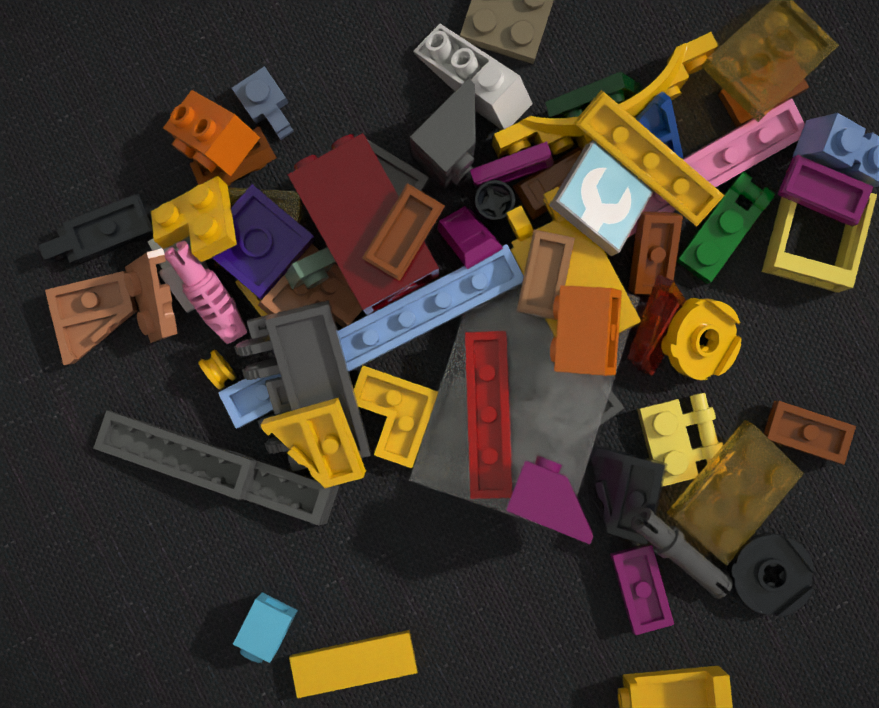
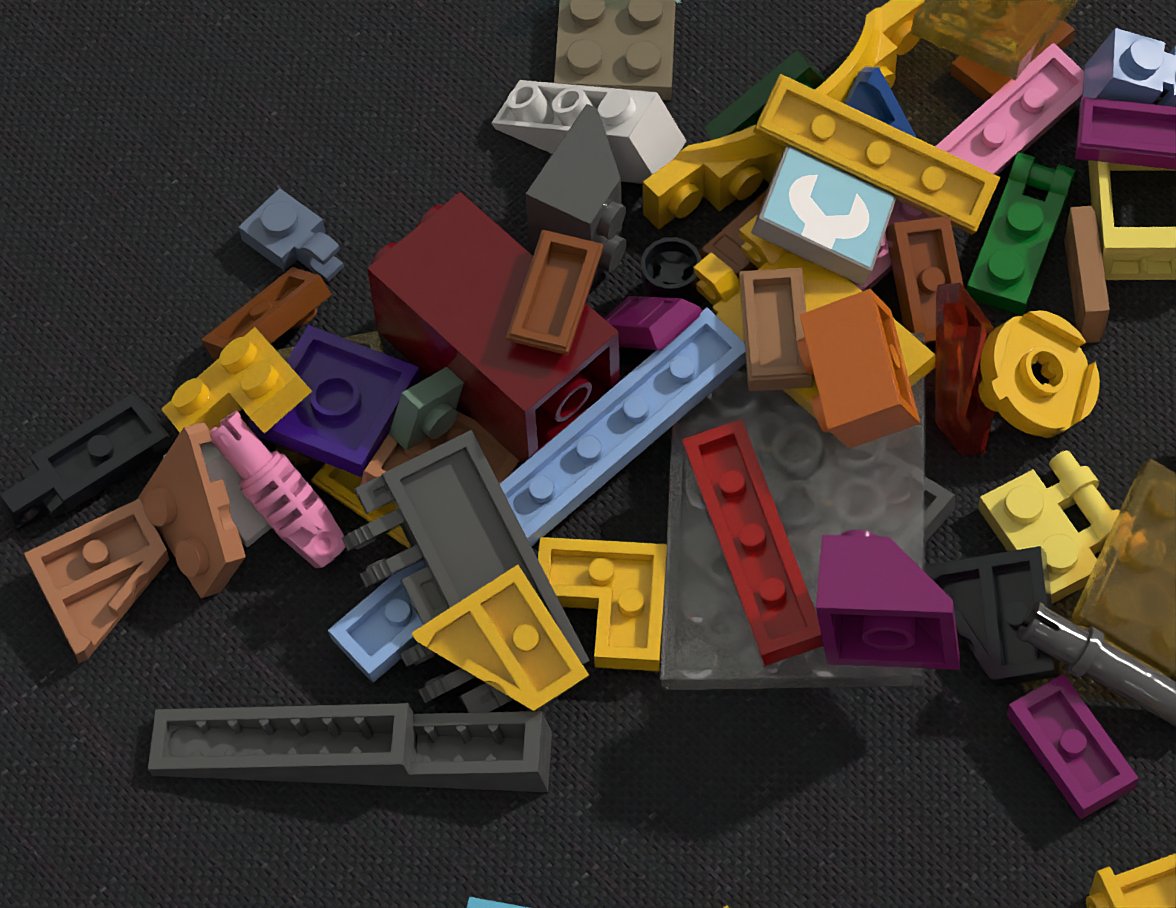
camera: 10 degrees left, 25 degrees down
(210, 134) = (228, 278): orange brick -> none
(217, 369) = (317, 602): yellow bush -> none
(514, 165) = (689, 215): magenta tile -> none
(756, 272) = (1086, 273): none -> medium nougat tile

